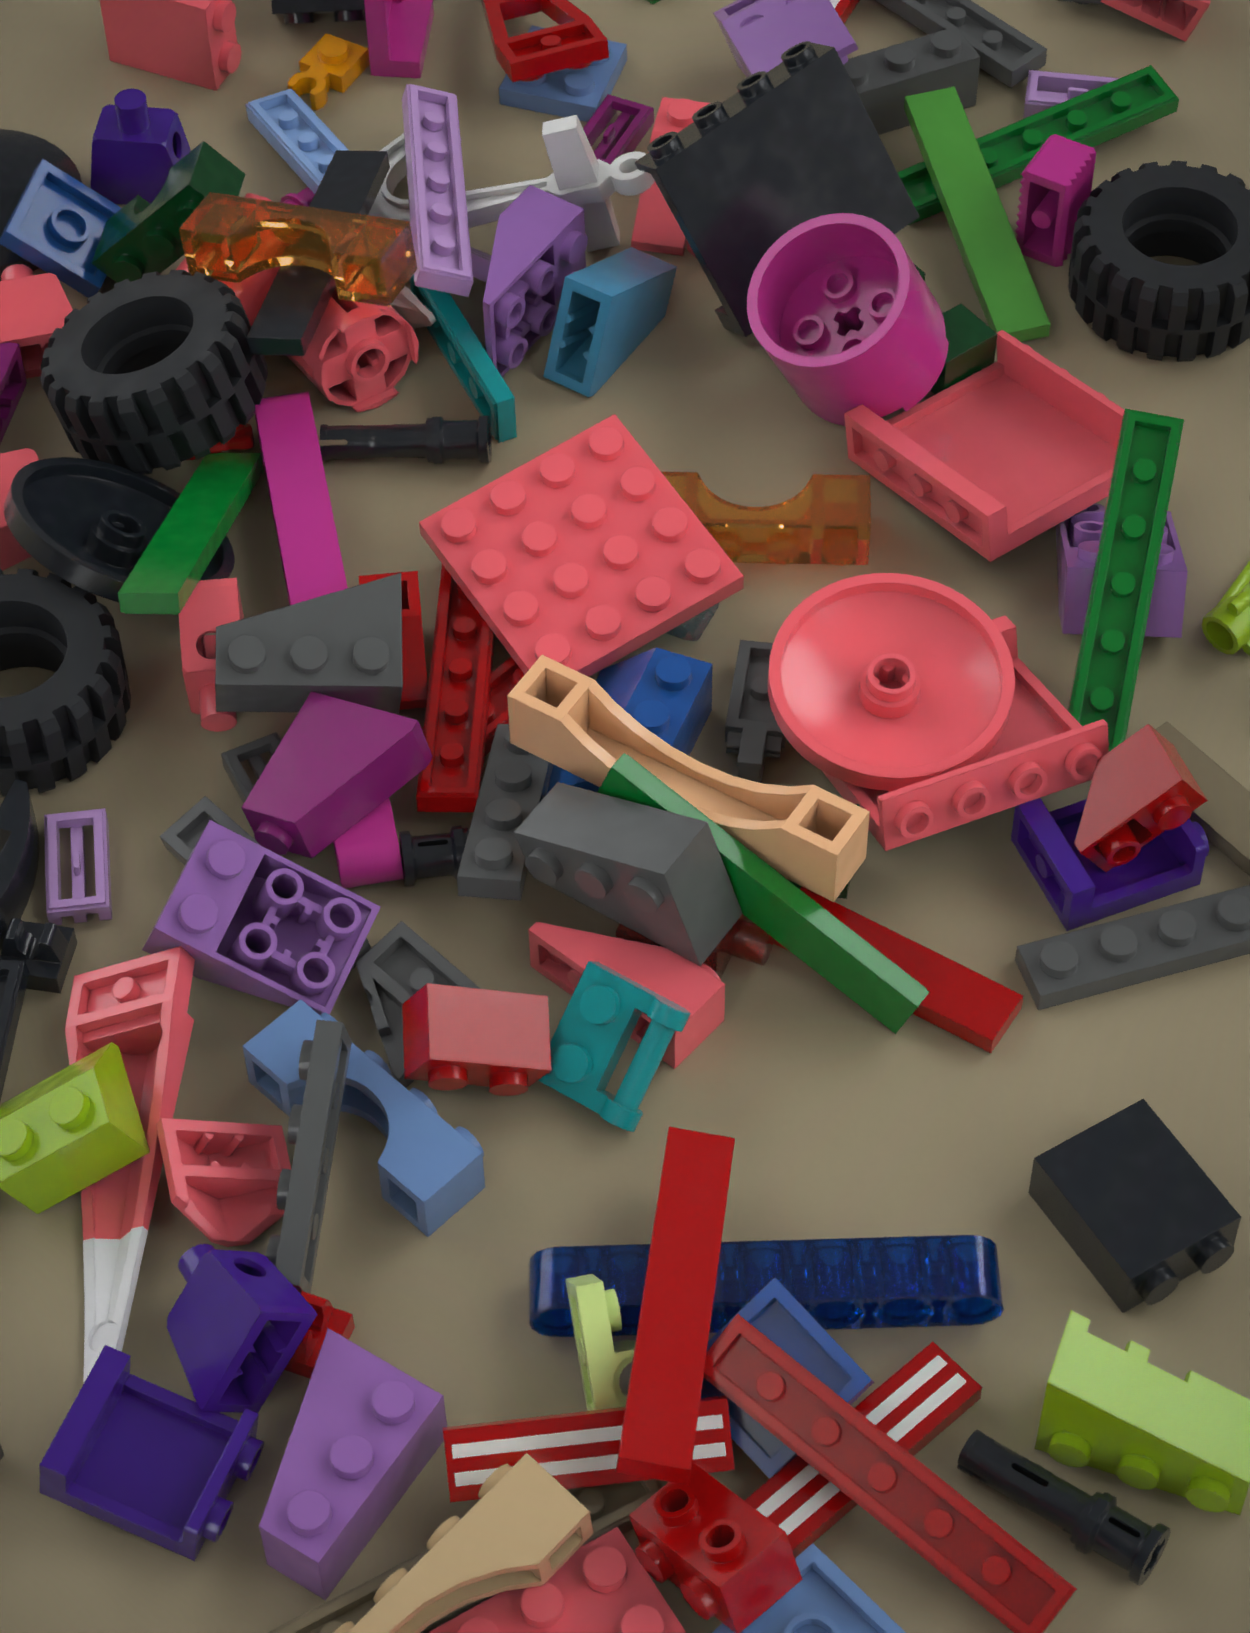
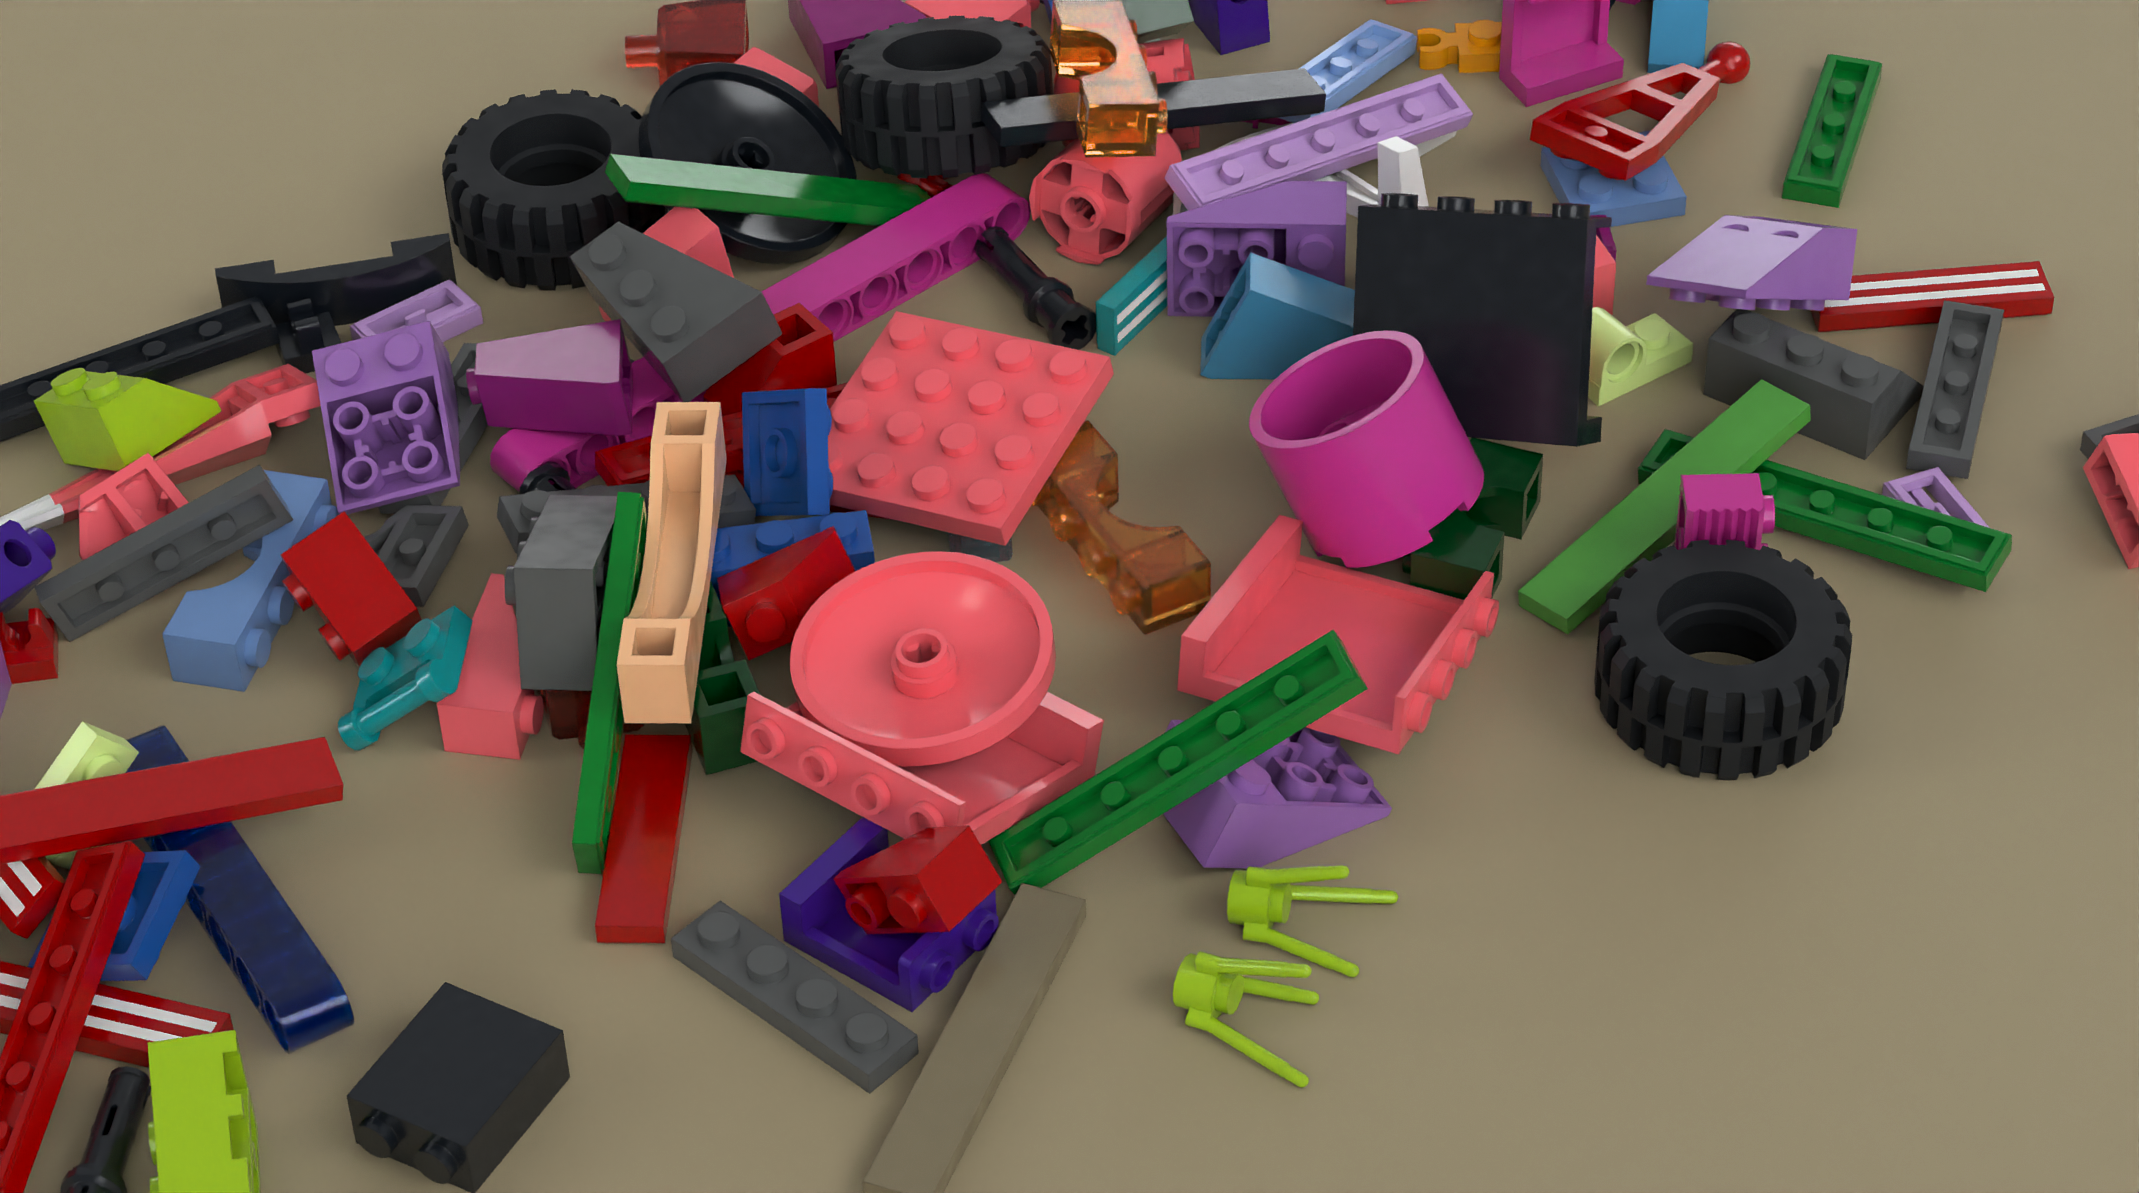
camera: 60 degrees right, 10 degrees down
(552, 628) = (787, 451): none -> blue plate
(714, 730) = (776, 591): none -> red slope

